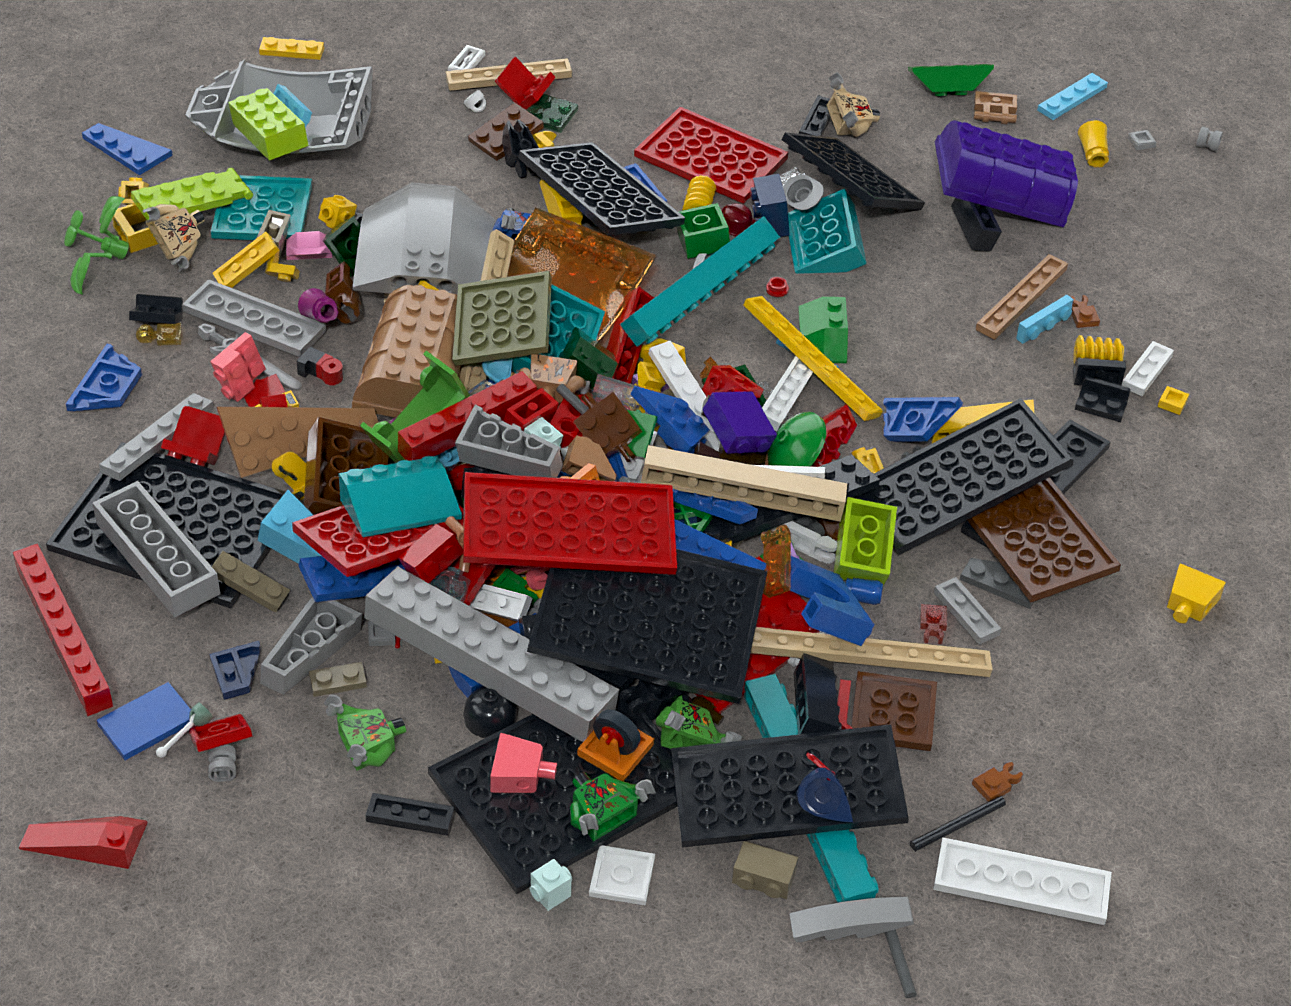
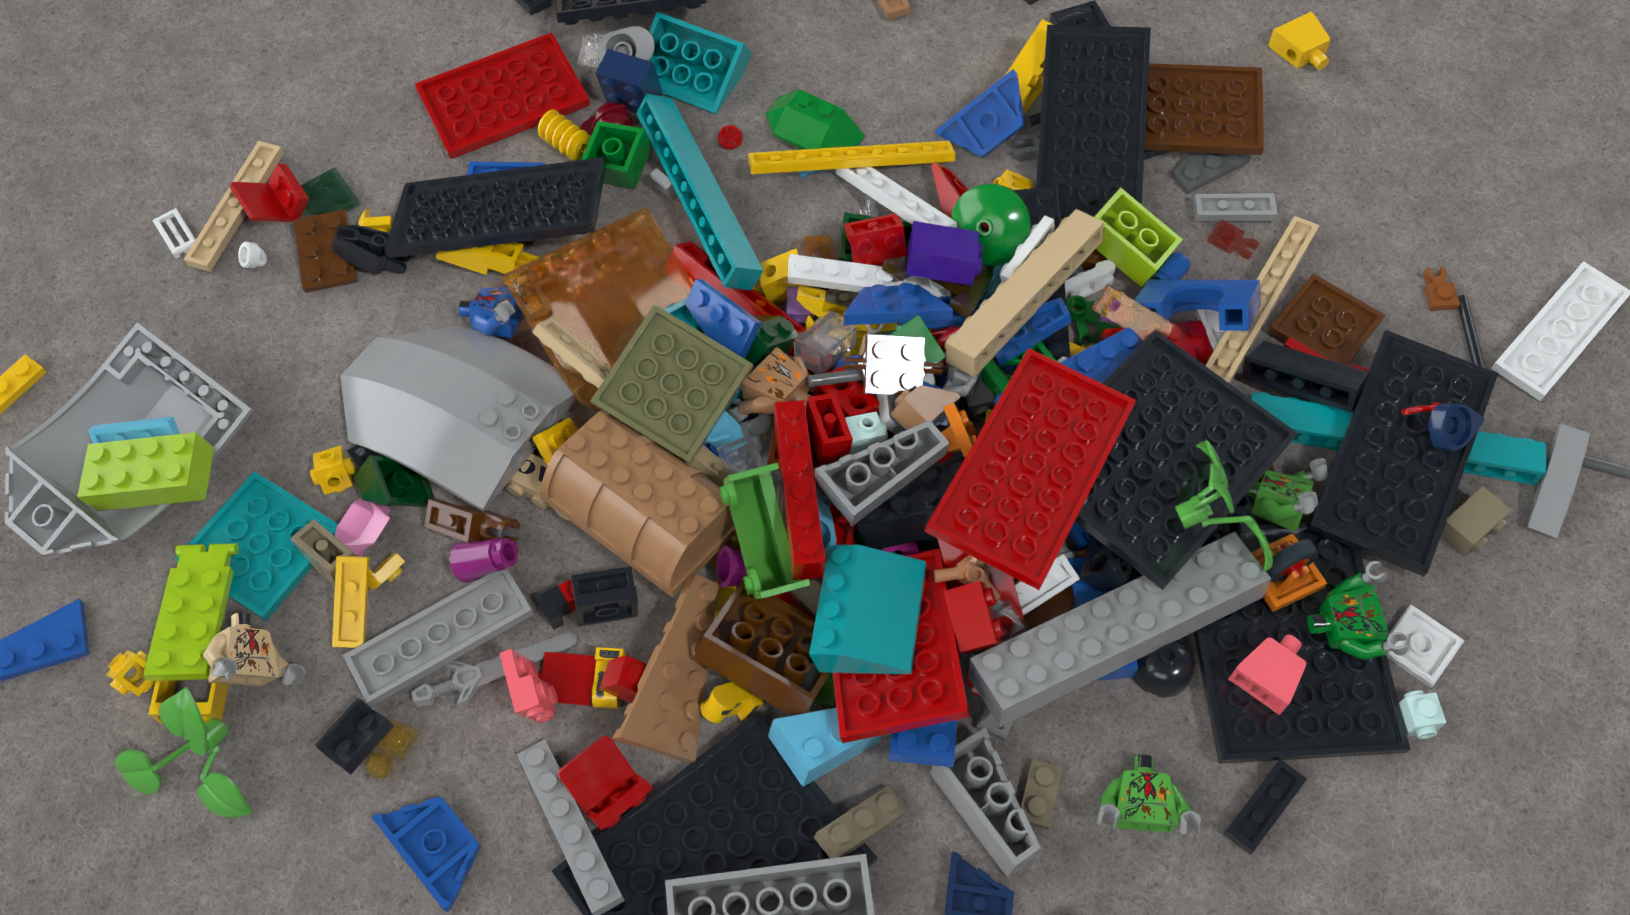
camera: 55 degrees left, 15 degrees up
(330, 377) = (605, 596): none -> black bracket
(576, 324) = (722, 318): none -> blue wing
(605, 610) = (1198, 508): none -> bright green plant

